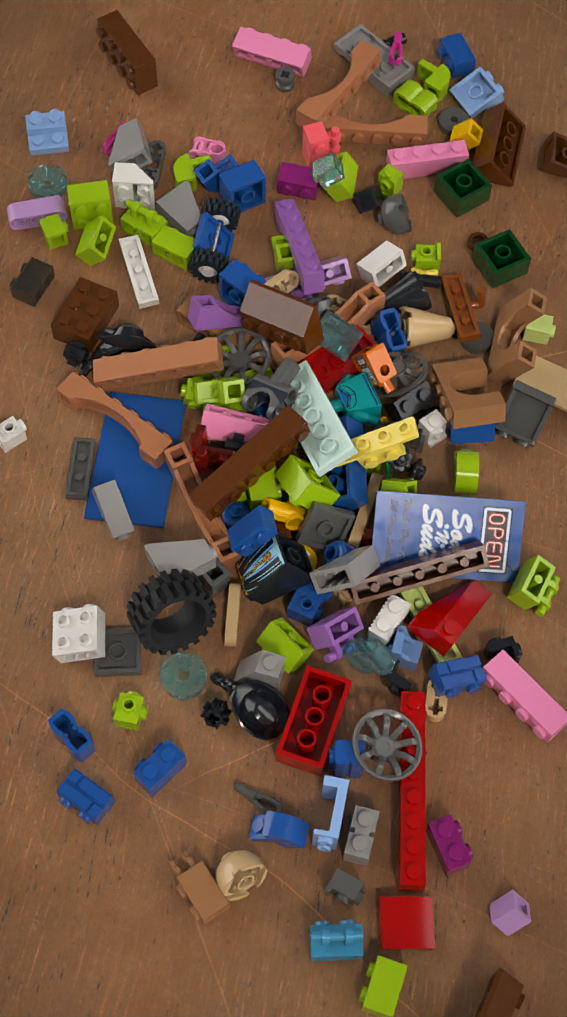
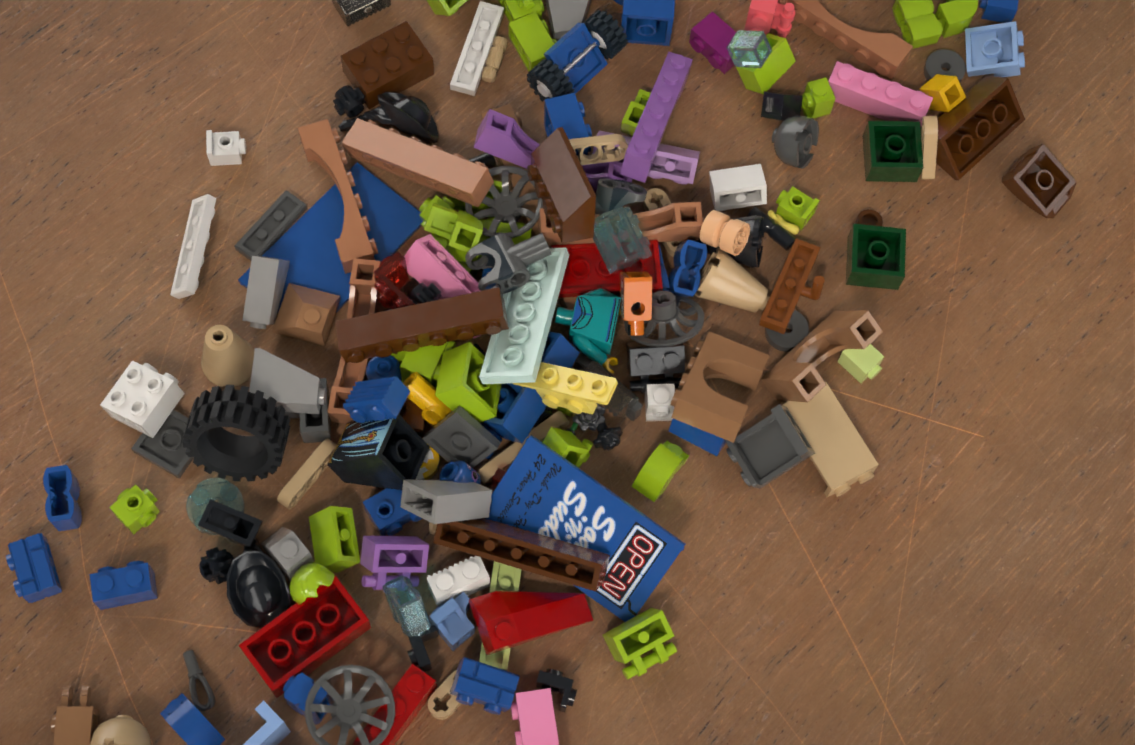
camera: 30 degrees right, 5 degrees up
(36, 512) = (193, 247): none -> white plate
(117, 571) = (226, 357): none -> tan cone
(151, 511) = (306, 314): none -> medium nougat slope
(155, 272) = (494, 59): none -> tan axle
(208, 677) = (230, 523): none -> black slope
(295, 678) = (308, 579): none -> lime hair
(398, 292) = (724, 232): none -> light nougat wheel
(485, 165) = (929, 140): none -> tan beam

